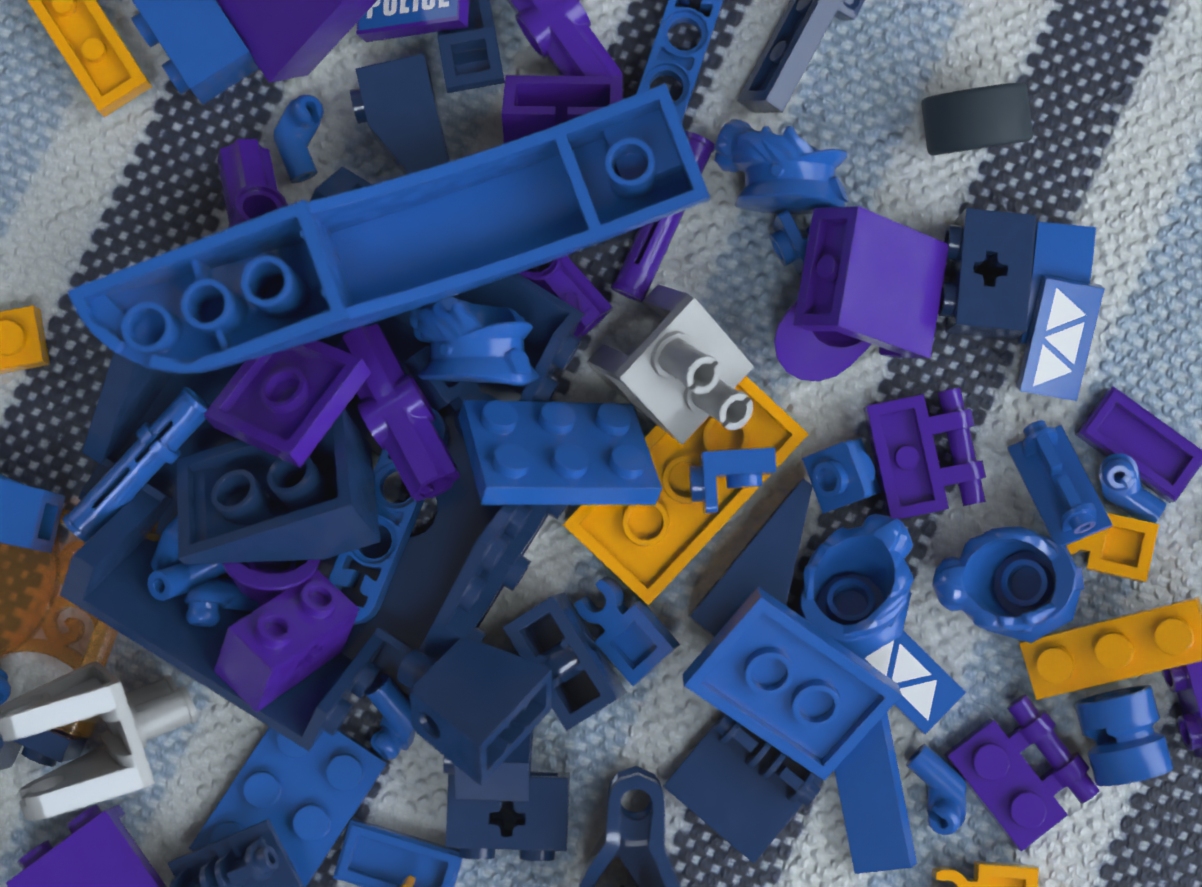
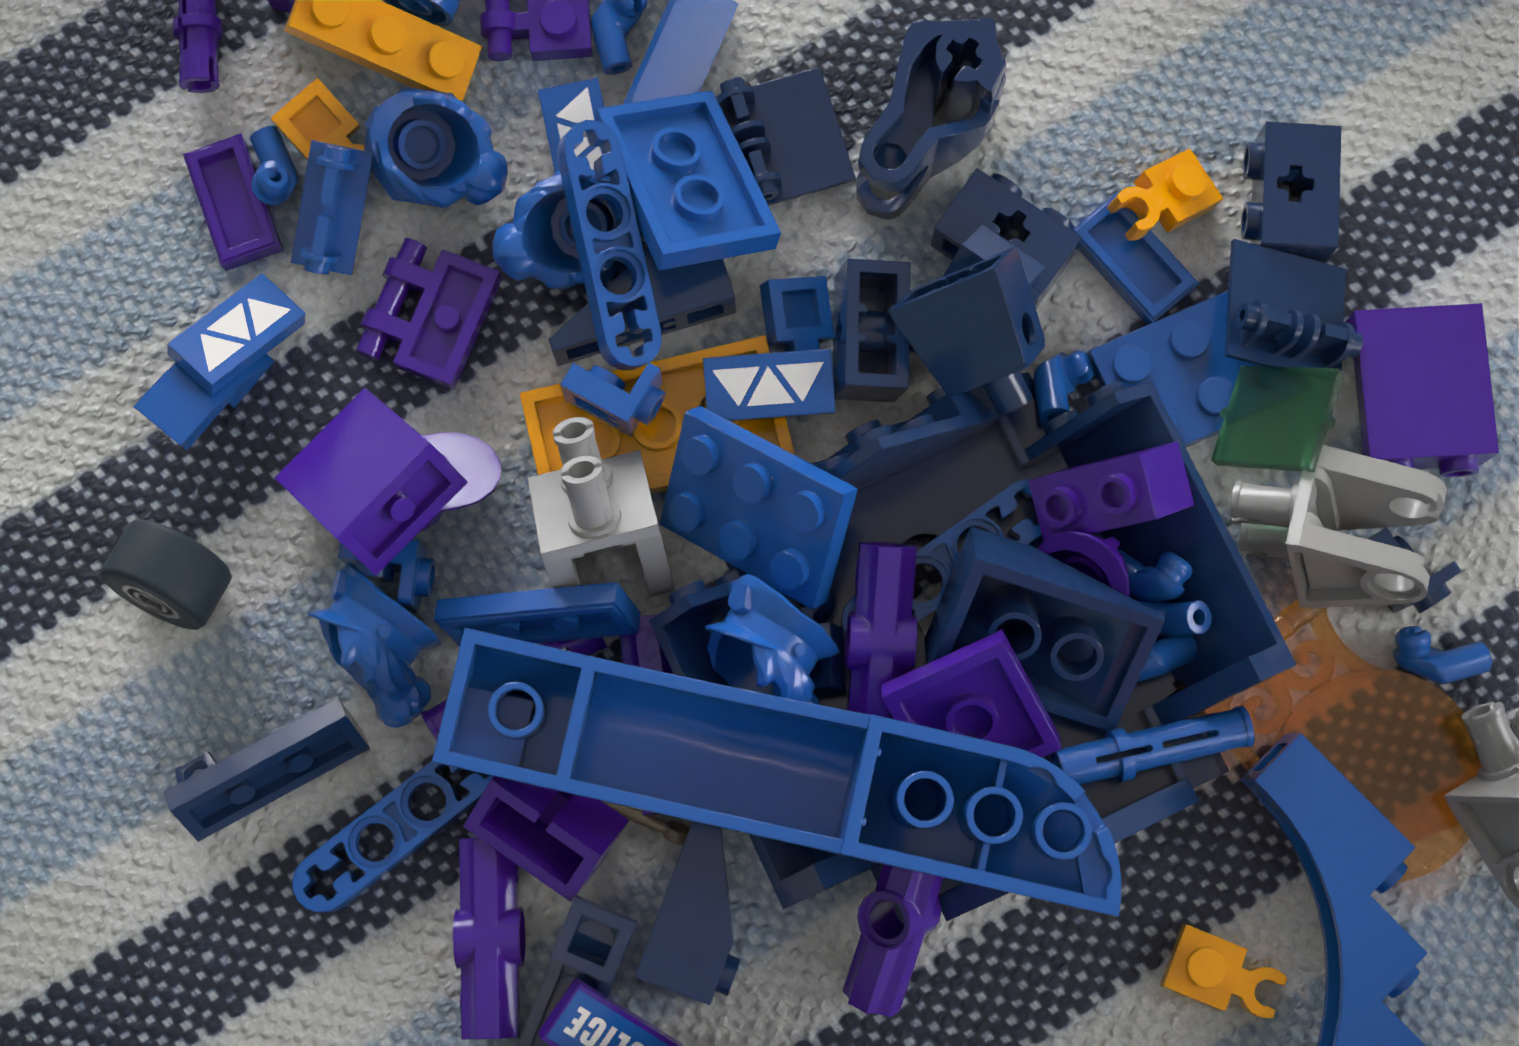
camera: 145 degrees left, 5 degrees down
(194, 793) = (1278, 417): none -> clear green piece
(294, 135) = (808, 993): blue arm -> none
(616, 562) = (770, 385): none -> blue tile
(672, 267) = (543, 613): none -> blue tile
(806, 592) = (599, 246): none -> blue beam
(842, 474) = (515, 336): blue bracket -> none
(1007, 248) = (262, 398): dark blue brick -> none

